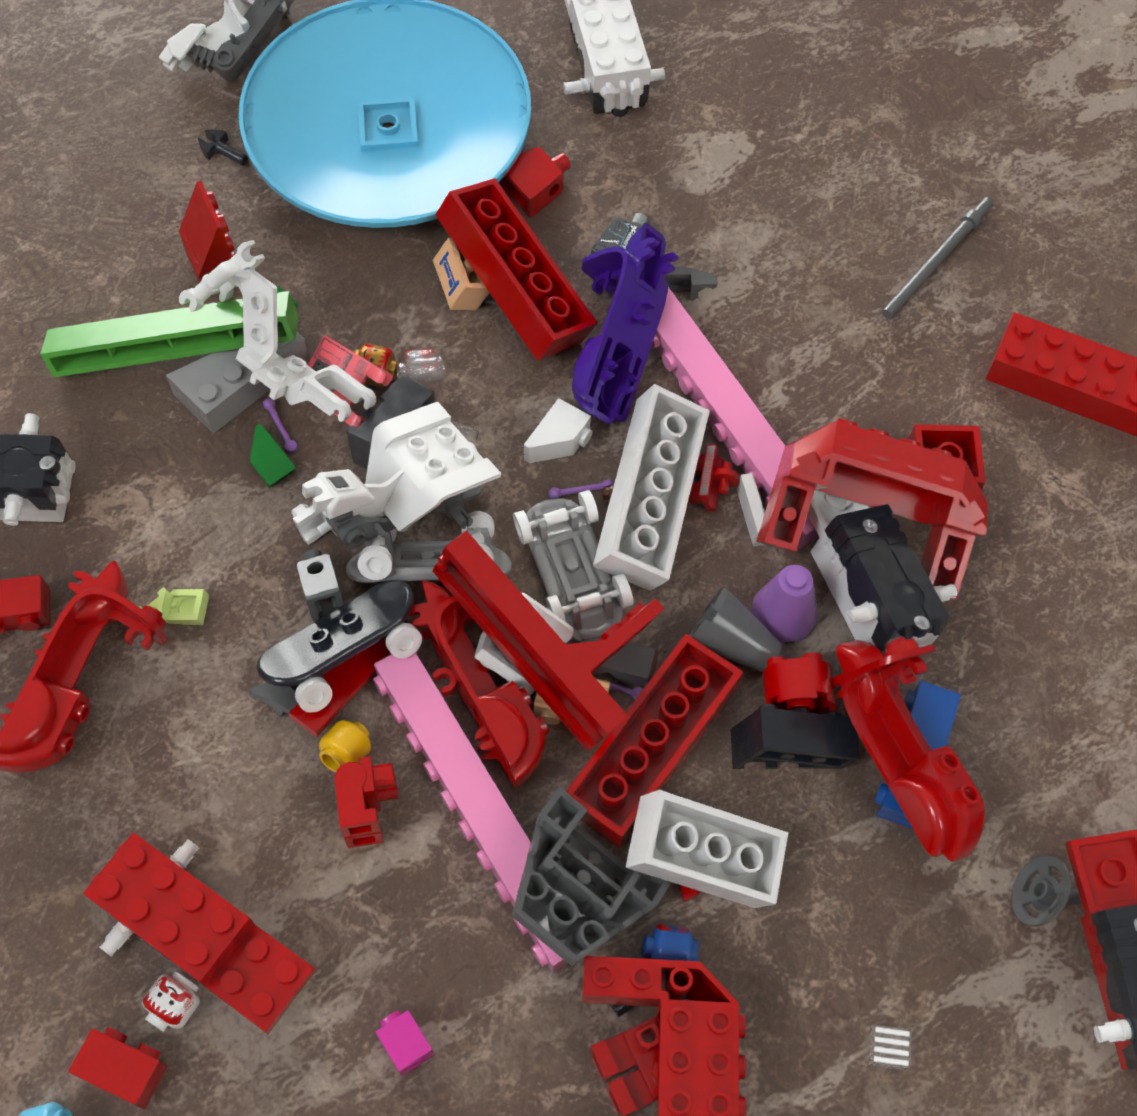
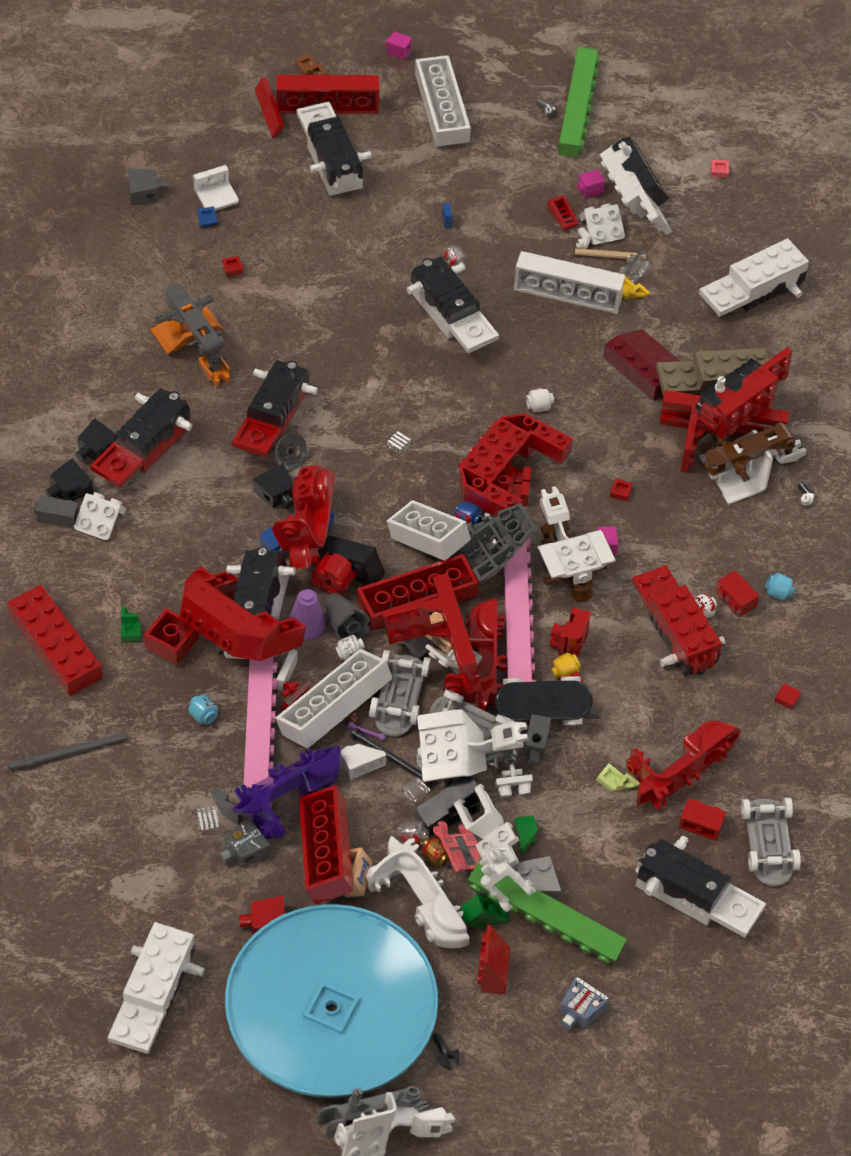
camera: 150 degrees left, 10 degrees down
(71, 270) = (582, 1004): none -> torso
(320, 274) = (436, 914): none -> white piece
(439, 952) = (569, 557): none -> white piece
(548, 470) = (356, 734): none -> black bar
(689, 590) = (349, 646): none -> white head
(702, 261) = (208, 818): none -> clear tile
(817, 388) = (203, 709): none -> medium azure head
(1014, 465) = (130, 626): none -> green slope
(1014, 815) = (275, 487): none -> black torso

